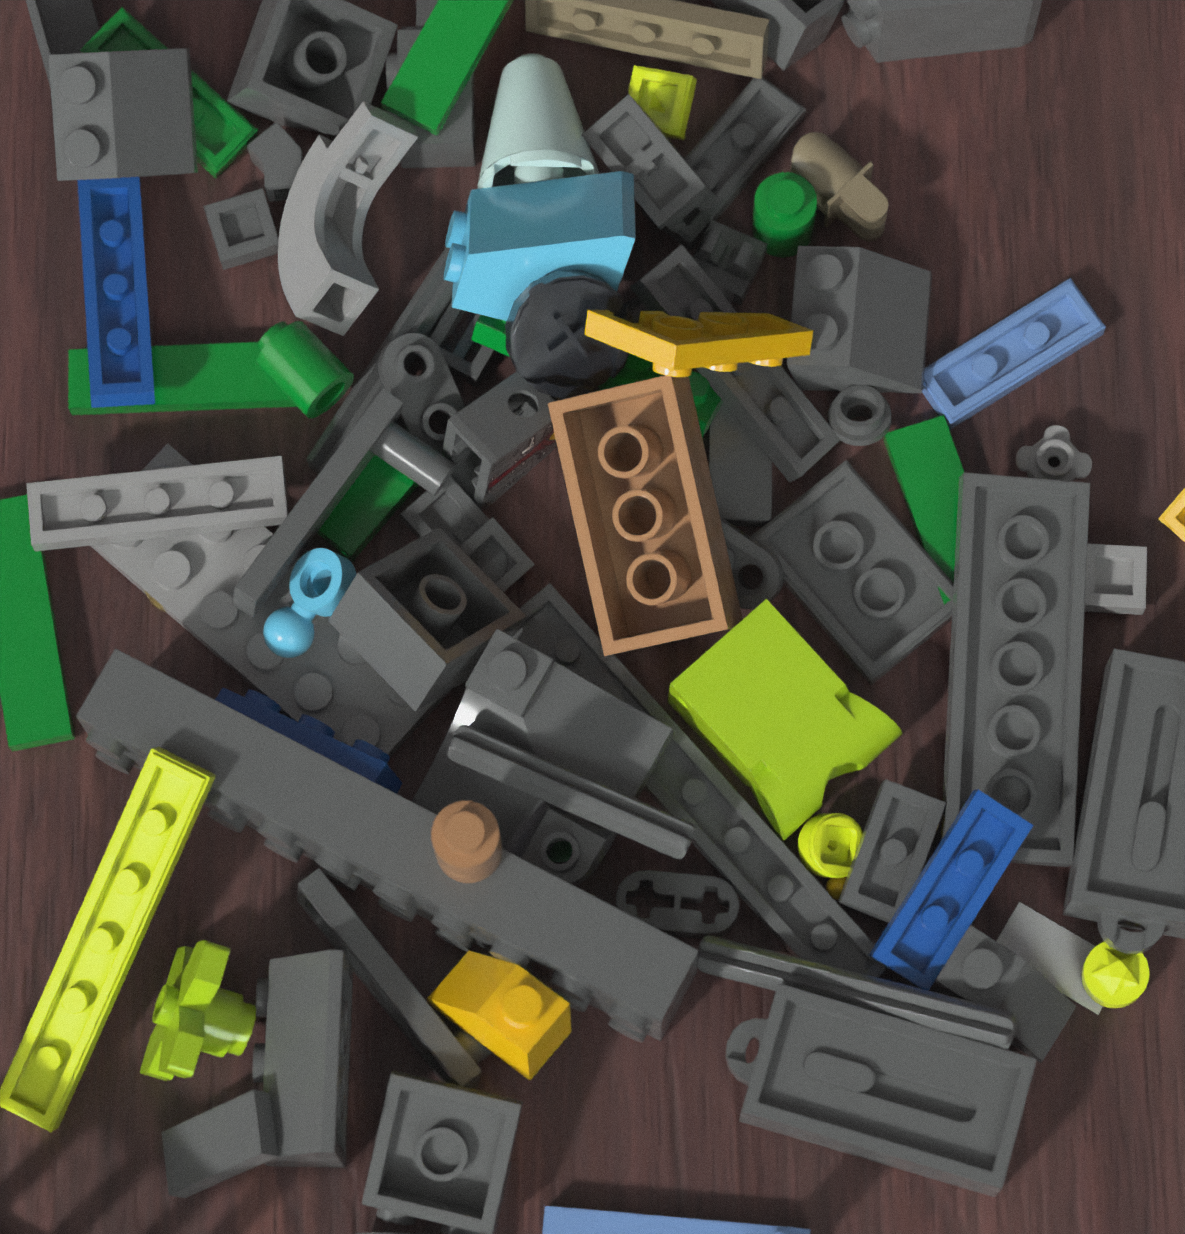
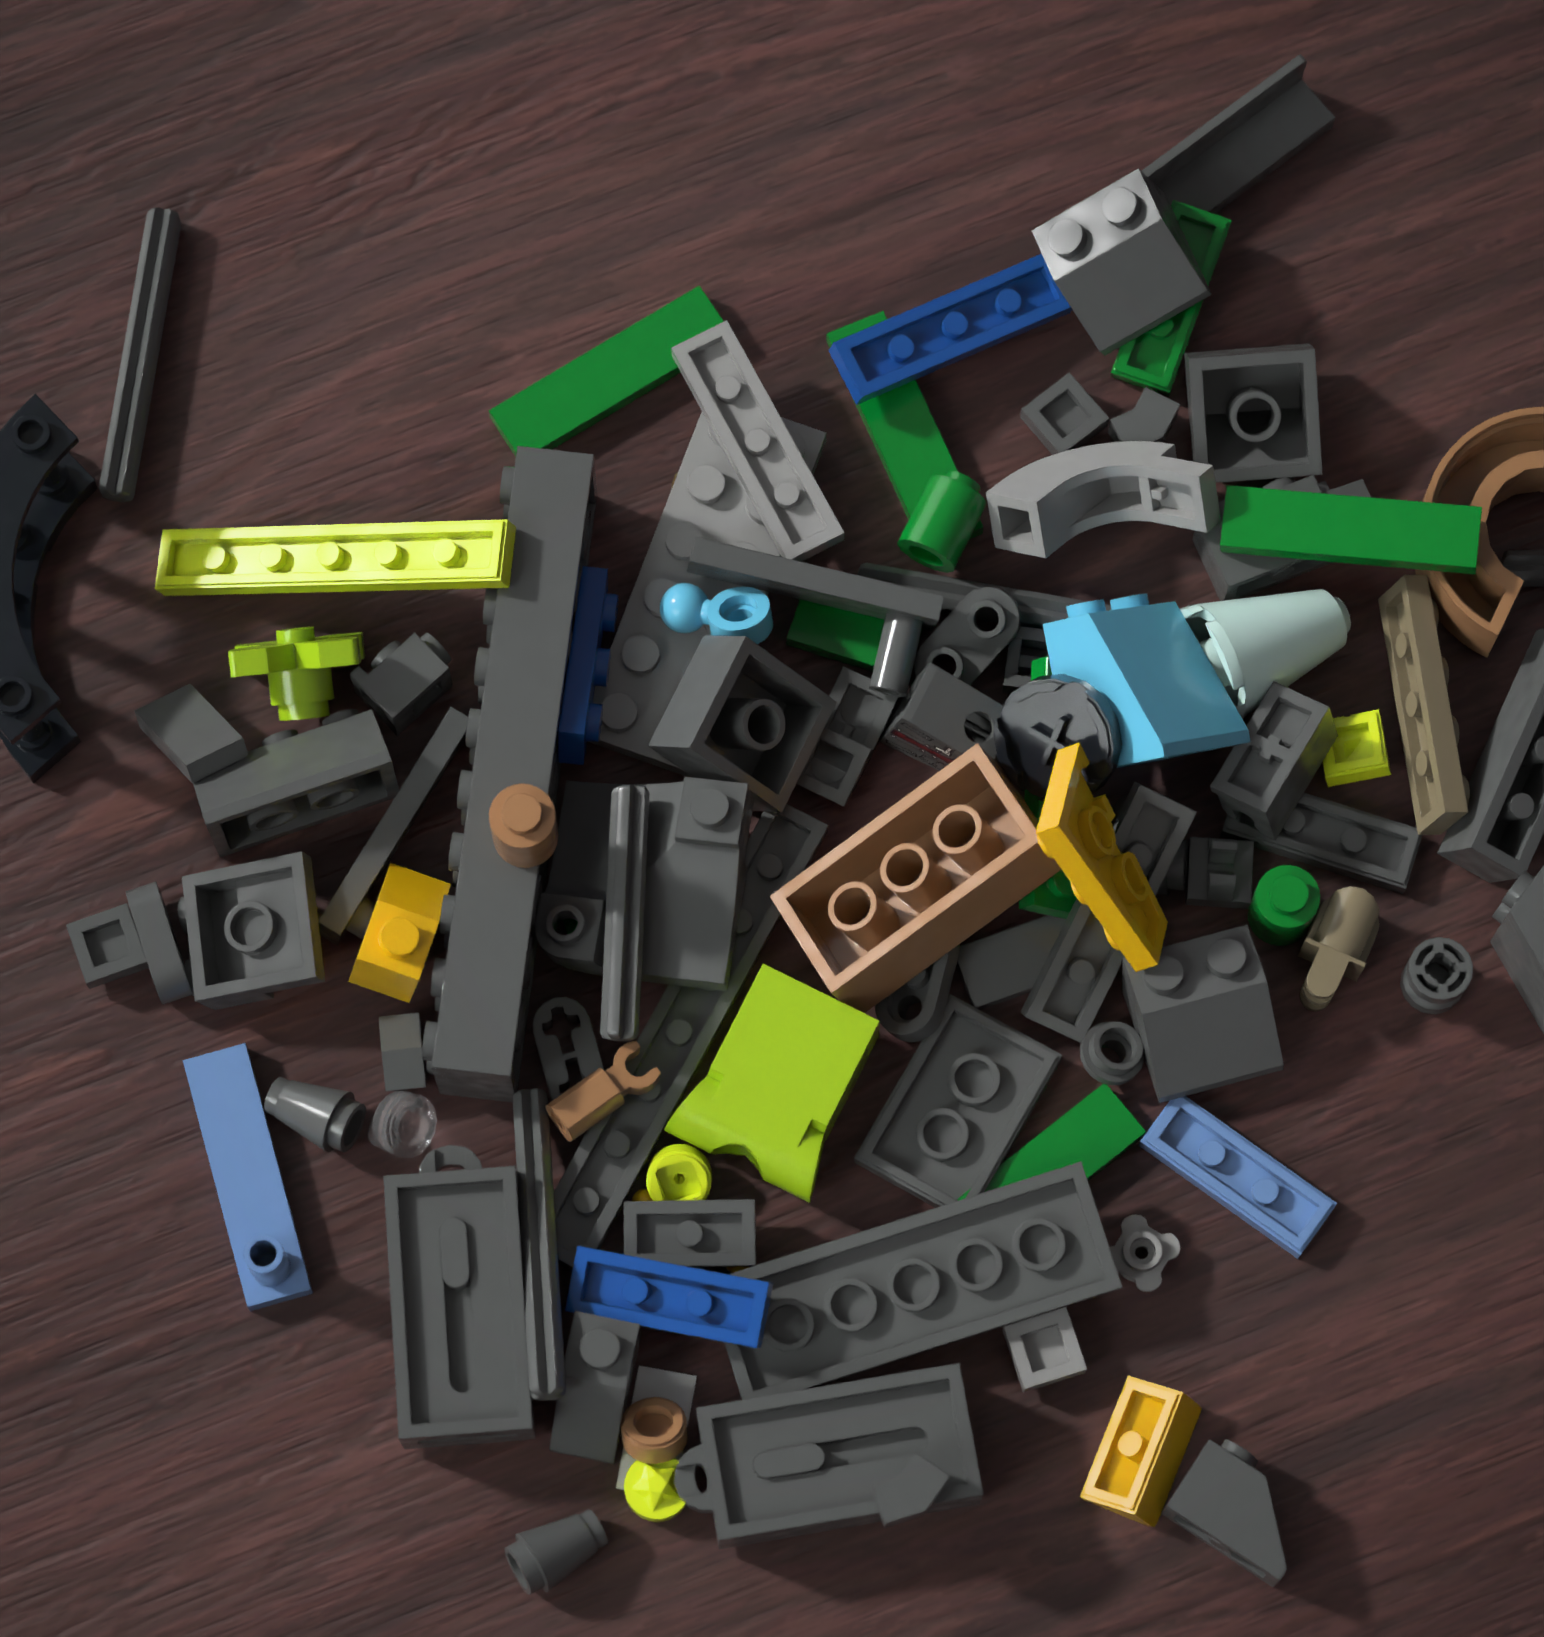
camera: 65 degrees right, 0 degrees up
(246, 922) = (404, 680): none -> dark grey brick
(614, 1058) = (402, 1052): none -> dark grey piece
(640, 1161) = (317, 1112): none -> dark grey cone
(682, 1084) = (403, 1124): none -> clear tile
(732, 884) = (599, 1094): none -> medium nougat bar
(895, 127) = (1433, 988): none -> dark grey wheel
(1064, 954) = (654, 1430): none -> medium nougat tile
(1143, 1089) = (554, 1550): none -> dark grey cone

